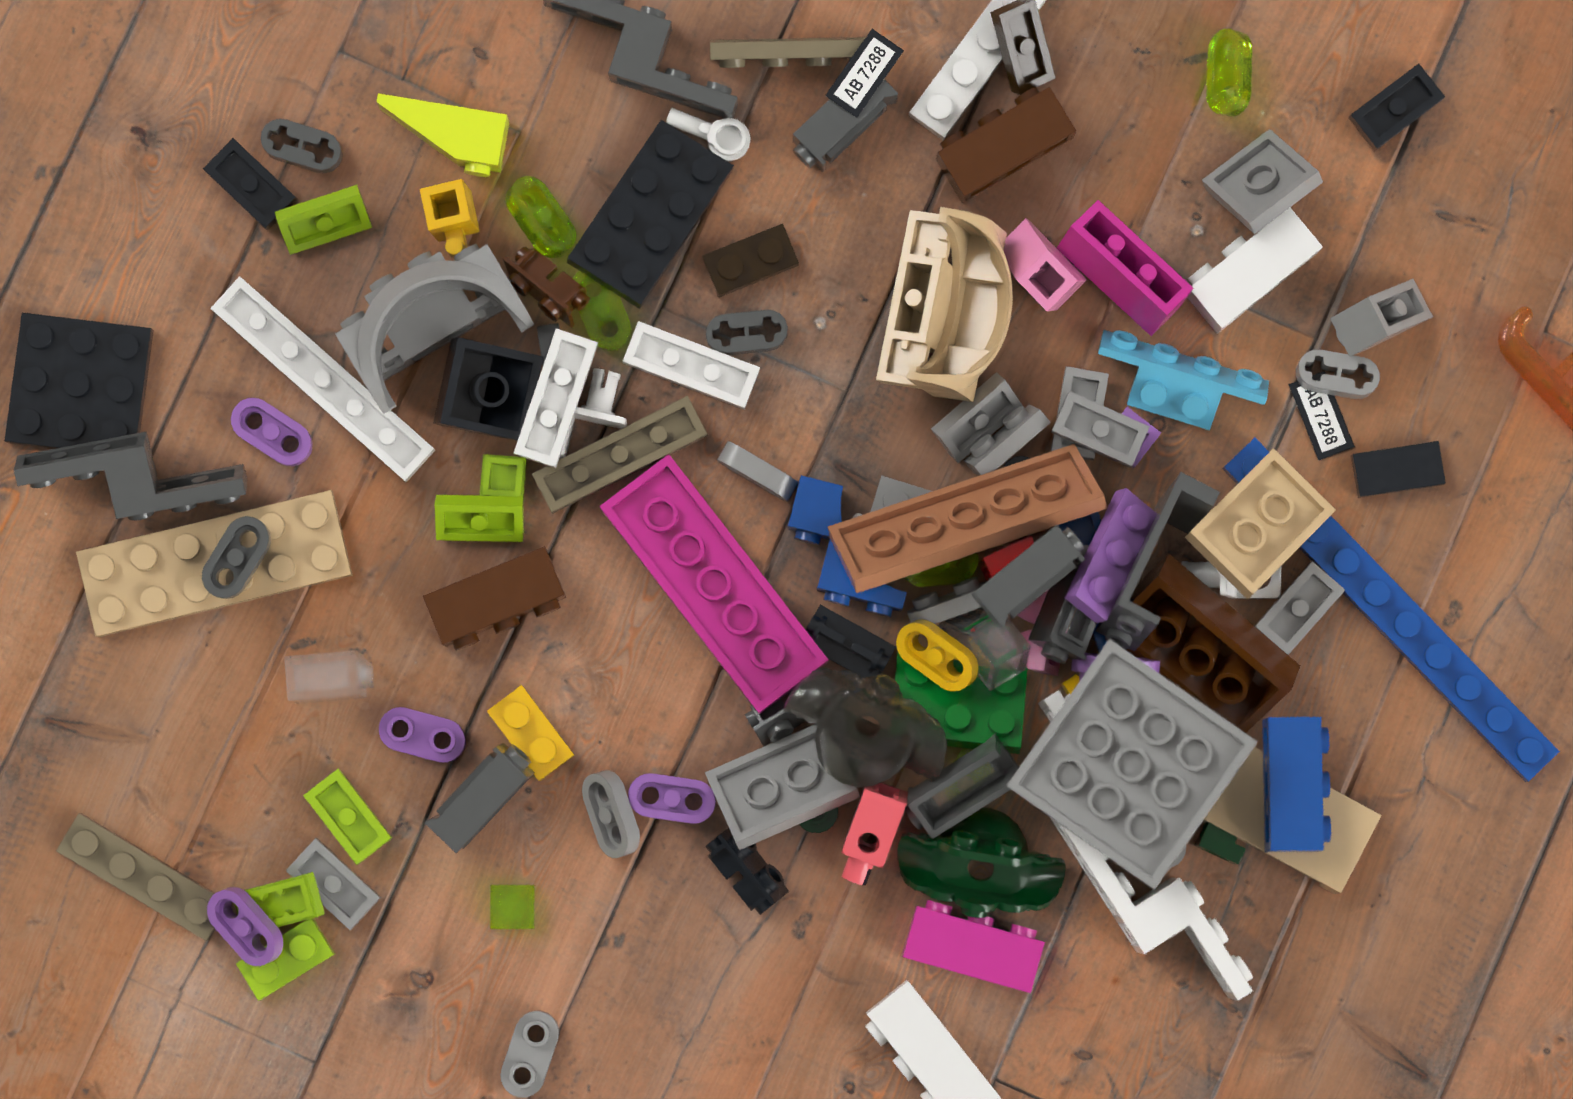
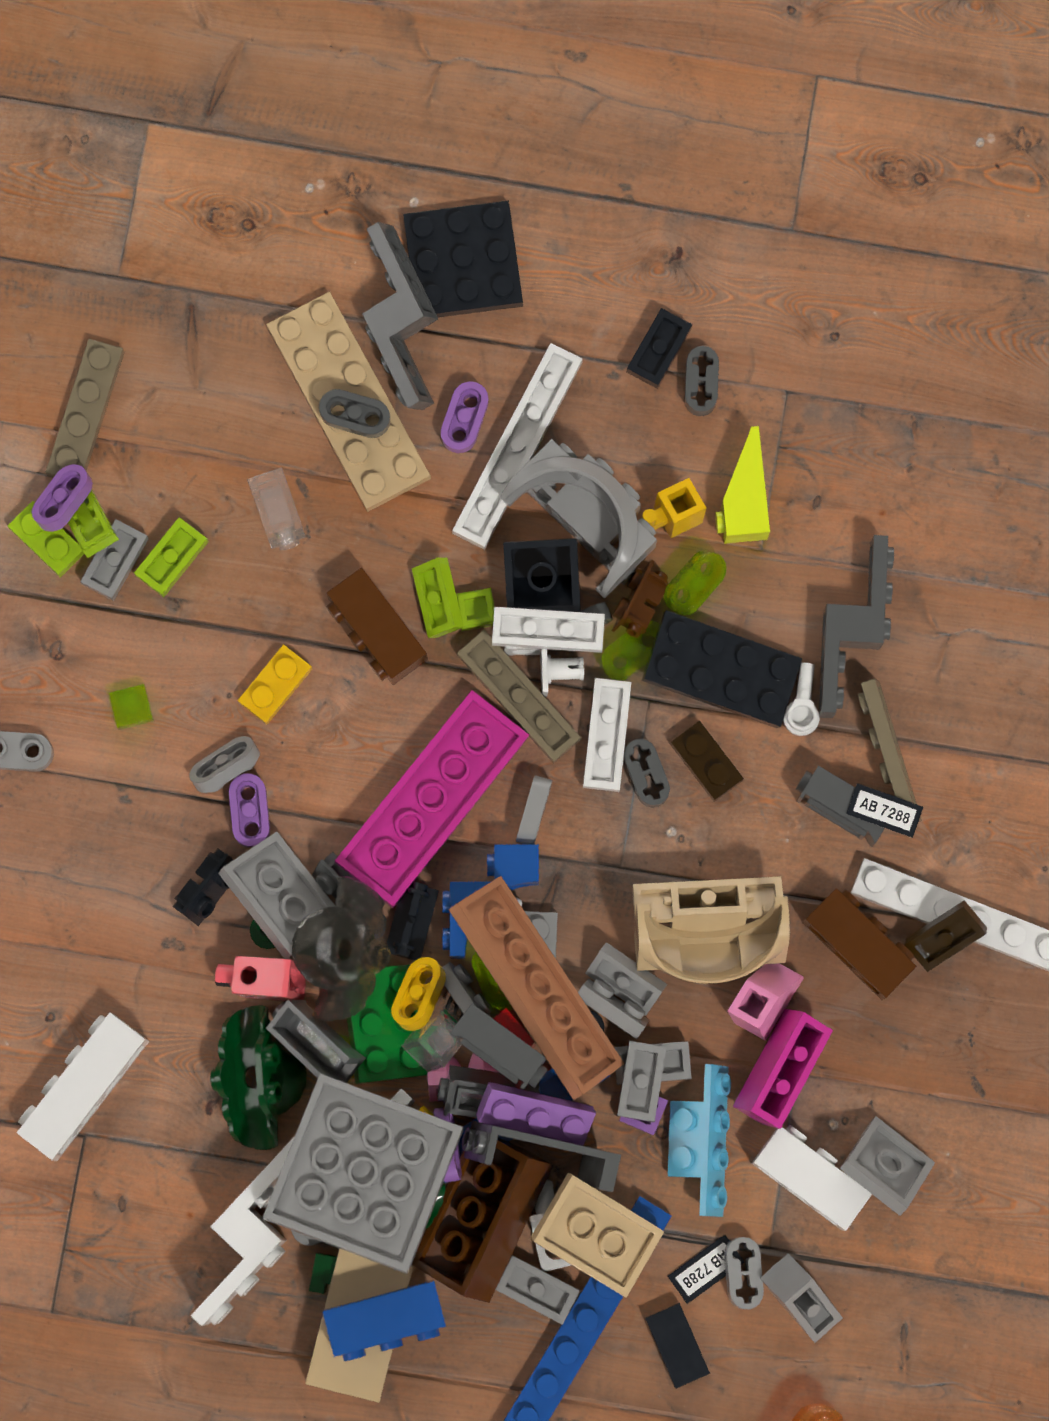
camera: 80 degrees right, 5 degrees down
(323, 219) = (646, 412): lime plate -> none
(422, 734) = (252, 598): medium lavender plate -> none
(481, 796) = (212, 656): dark grey window -> none
(973, 947) = (187, 1087): dark pink brick -> none
(1229, 76) = (972, 1115): clear neon green plate -> none
(1396, 107) = (983, 1266): black plate -> none

